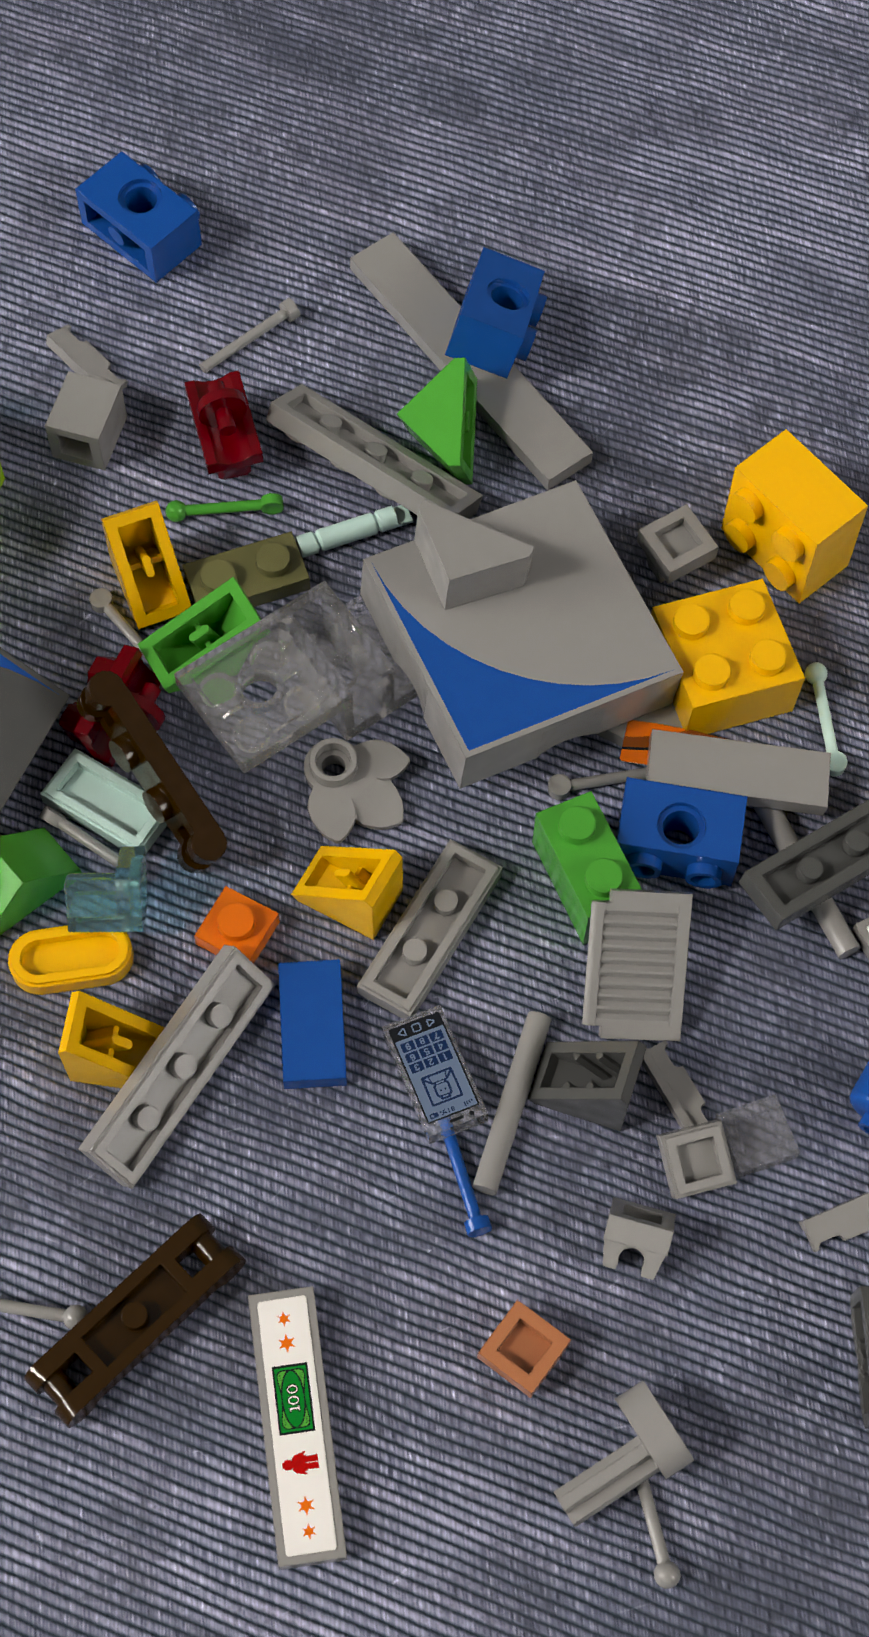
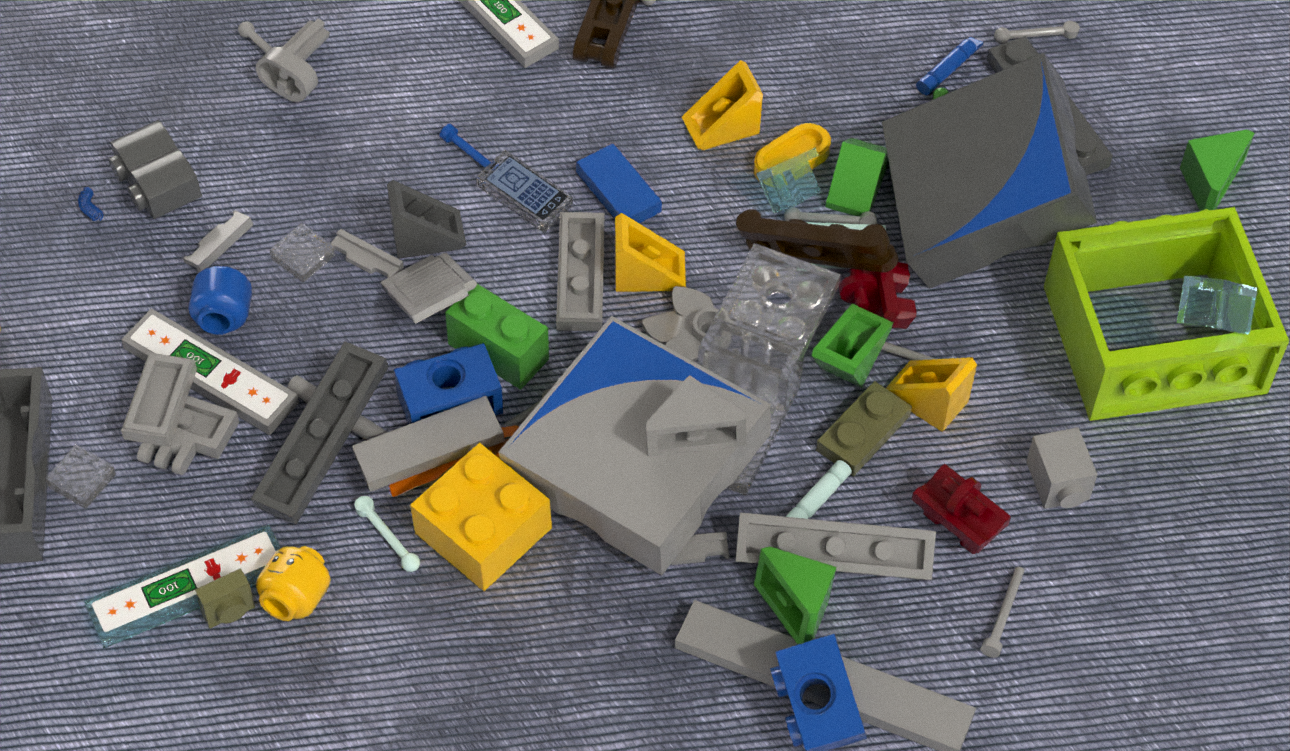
camera: 150 degrees right, 10 degrees down
(80, 355) = (1107, 529): light grey piece -> none
(139, 216) = (1187, 639): blue brick -> none
(177, 1067) = (680, 123): light grey tile -> none
(237, 923) = (703, 215): orange plate -> none
(269, 504) = (948, 451): bright green hinge -> none
(511, 1103) = (467, 203): light grey bar -> none
(524, 1348) = (384, 82): nougat plate -> none
(638, 1228) = (349, 162): light grey tile -> none
(676, 544) = (563, 585): light grey tile -> none
(696, 1159) = (334, 217): light grey tile -> none
(792, 516) = (484, 631): yellow brick -> none

